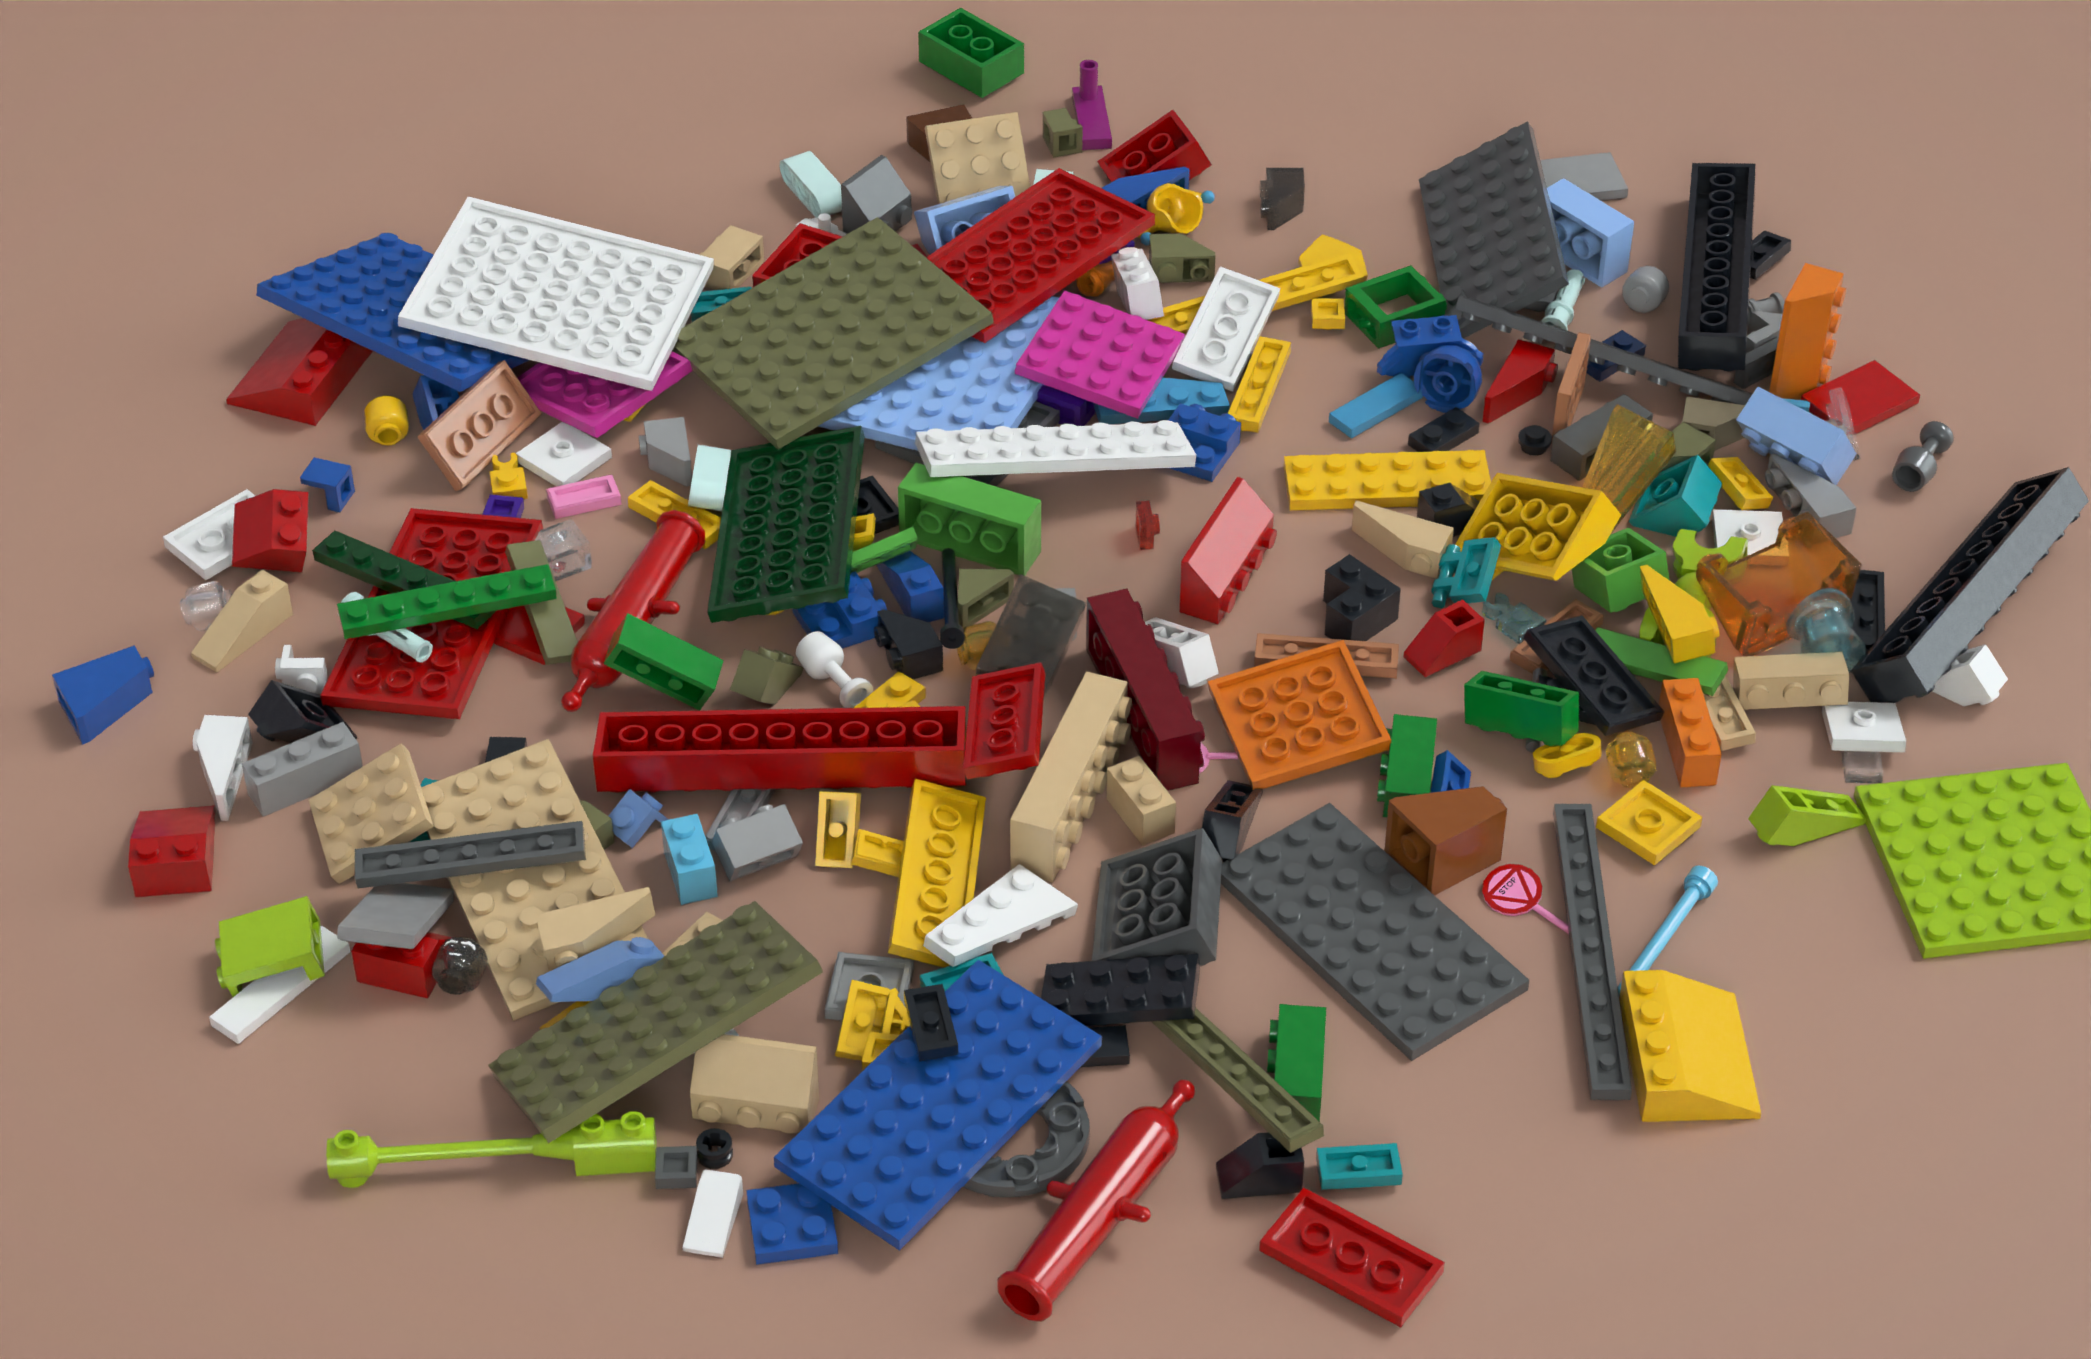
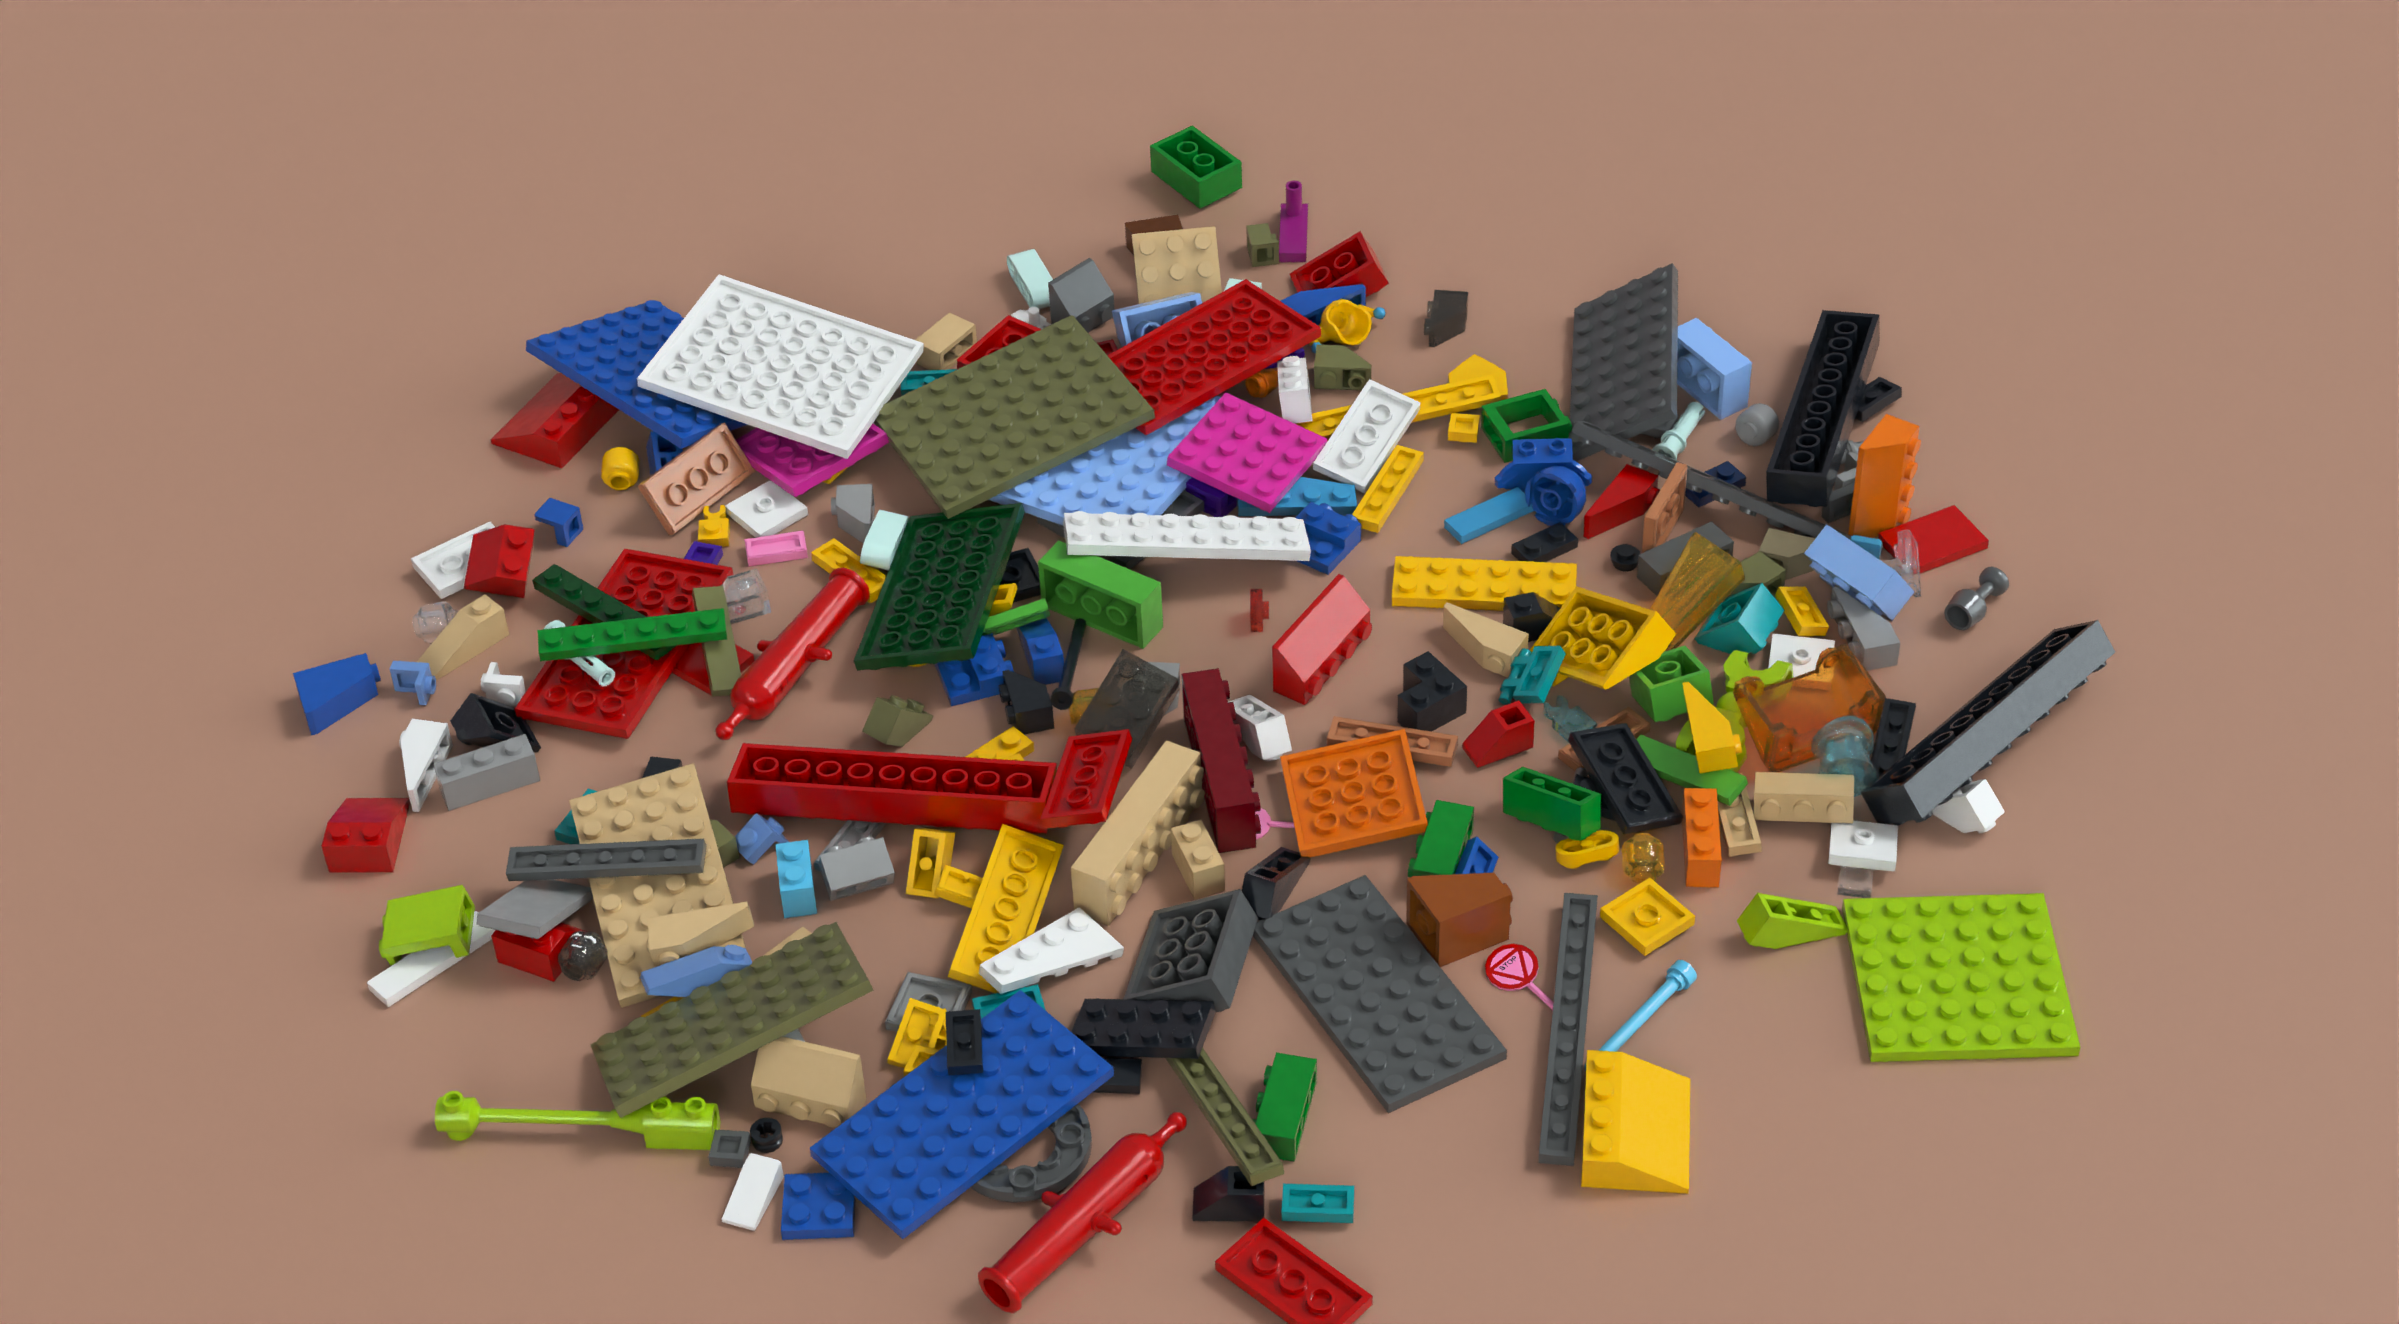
camera: 10 degrees right, 0 degrees up
(193, 670) = (414, 678): none -> medium blue bracket
(370, 809) = (535, 812): tan plate -> none
(663, 662) = (807, 702): green brick -> none
(823, 659) = (948, 711): white piece -> none
(982, 593) = (1095, 661): olive slope -> none
(1592, 173) = (1726, 315): light grey tile -> none

